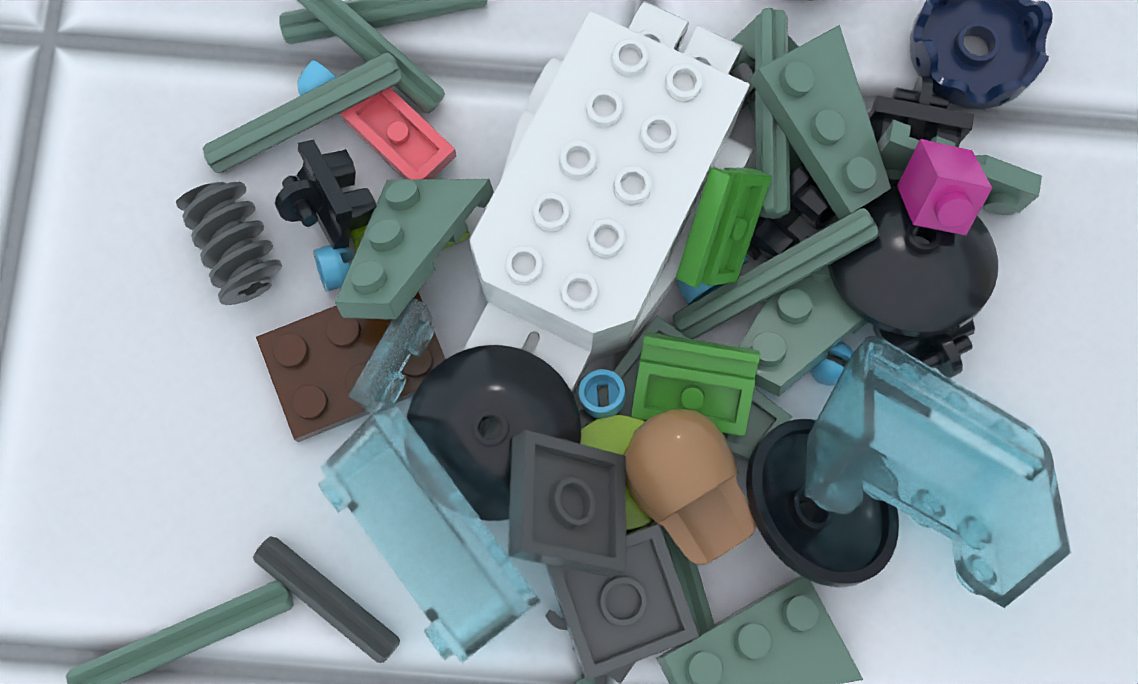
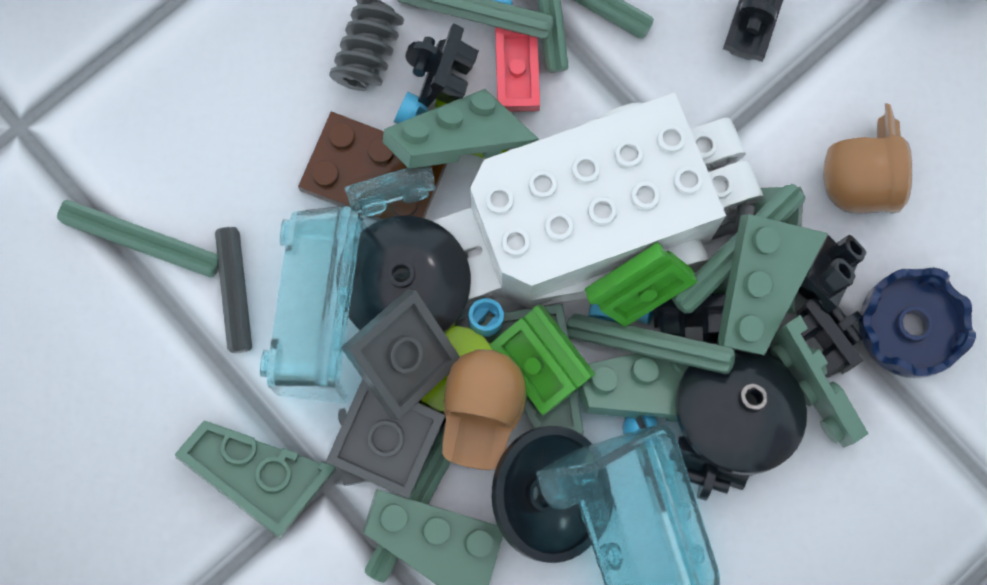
camera: 45 degrees right, 0 degrees up
(874, 57) = (832, 271): none -> black hips
(943, 187) = (791, 380): dark pink brick -> none

